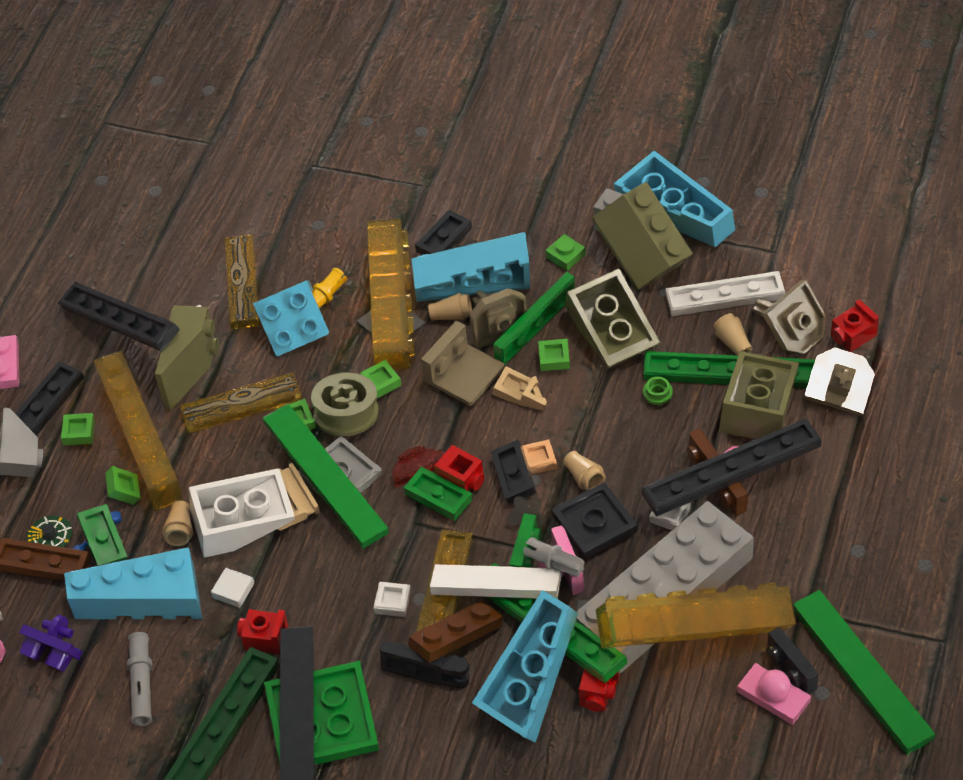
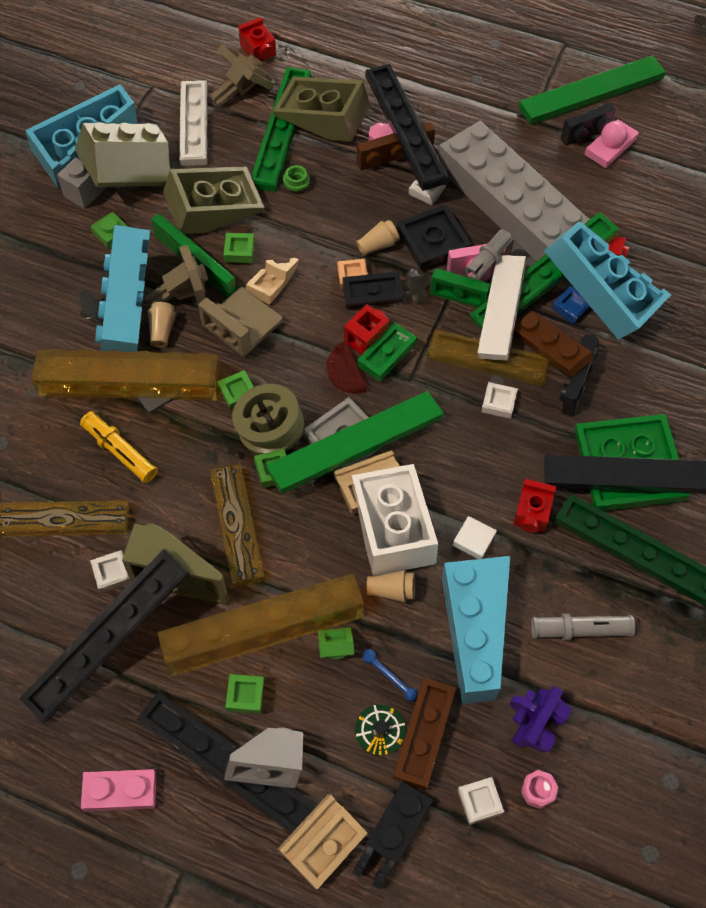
camera: 90 degrees left, 10 degrees up
(101, 535) = (405, 663): green plate -> none
(291, 318) = (136, 461): medium azure bracket -> none
(444, 234) = (62, 323): black plate -> none
(694, 616) = (563, 165): clear yellow brick -> none
(732, 334) = (246, 119): tan cone -> none
(840, 381) = (316, 54): piece -> none

